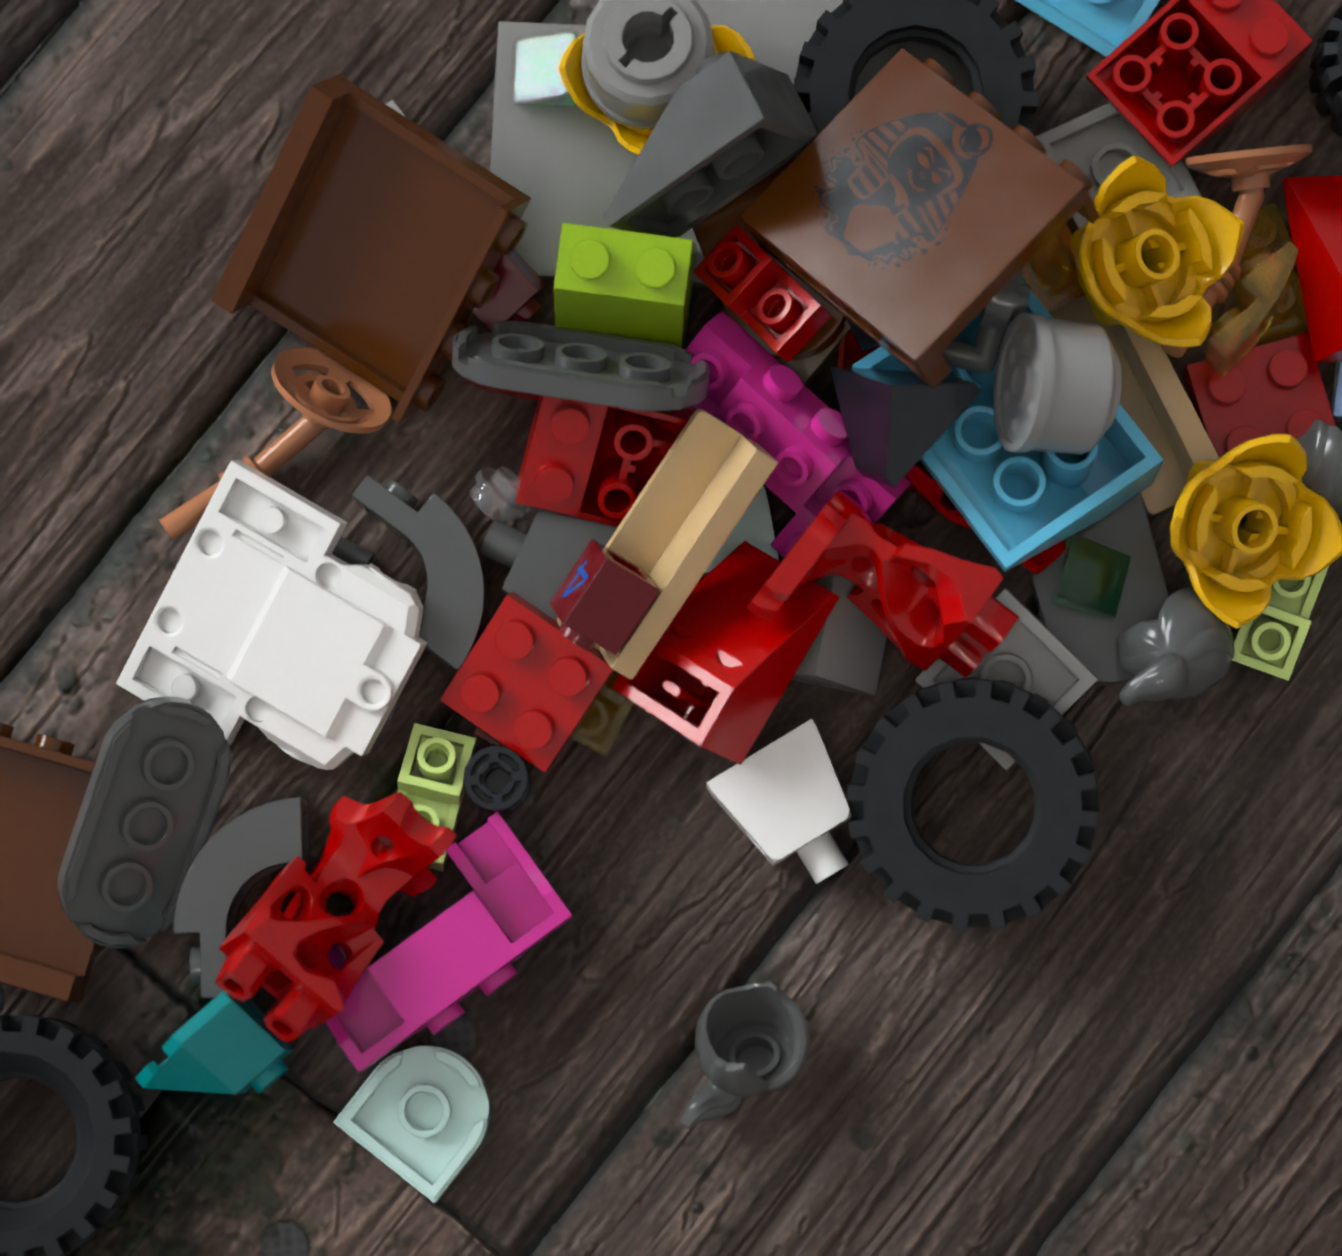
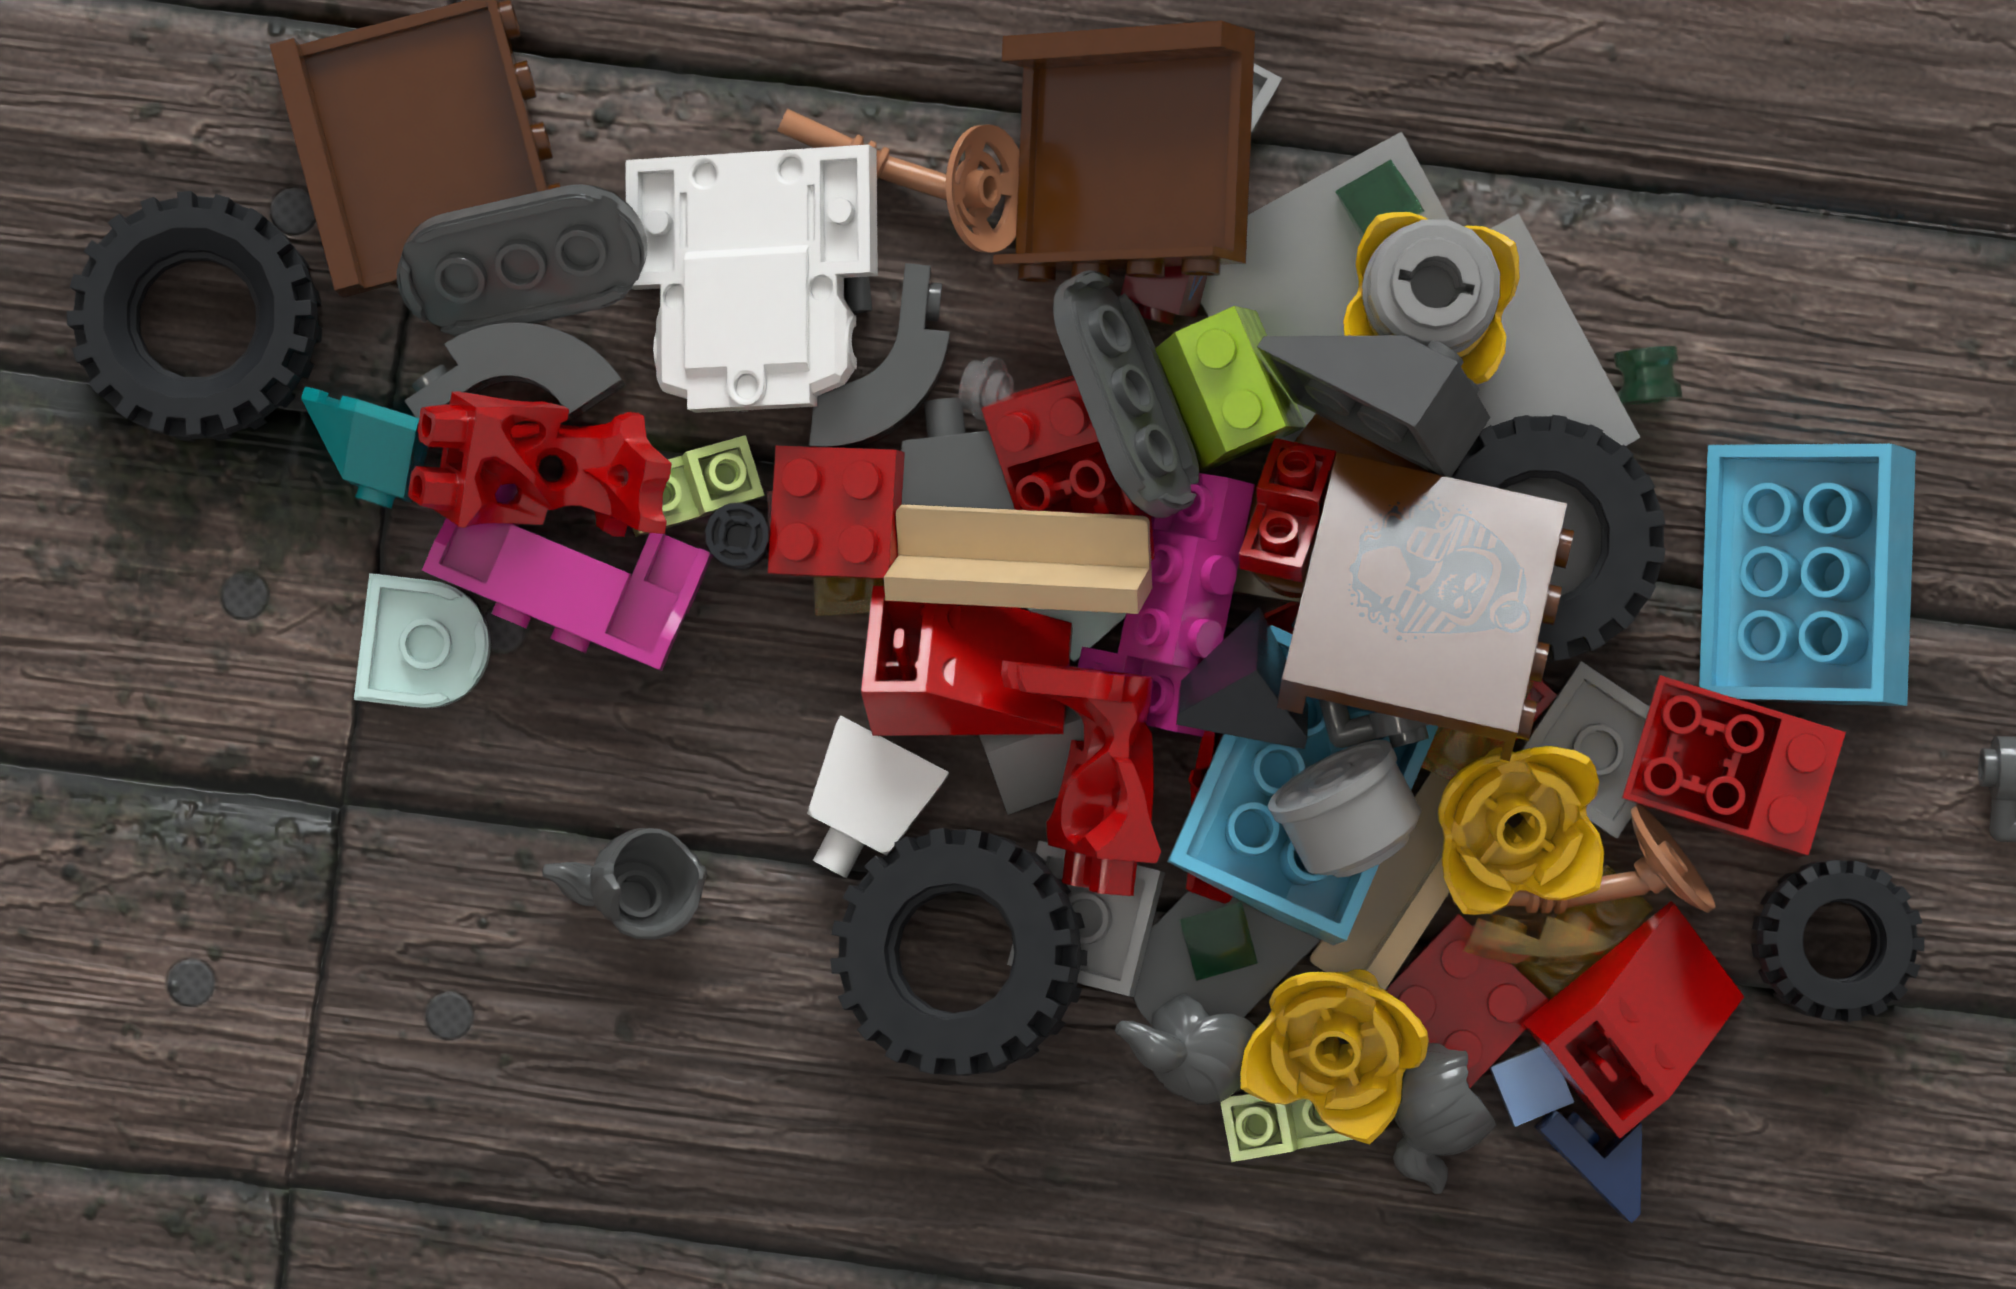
camera: 50 degrees right, 5 degrees up
(602, 599) = (937, 534): dark red brick -> none

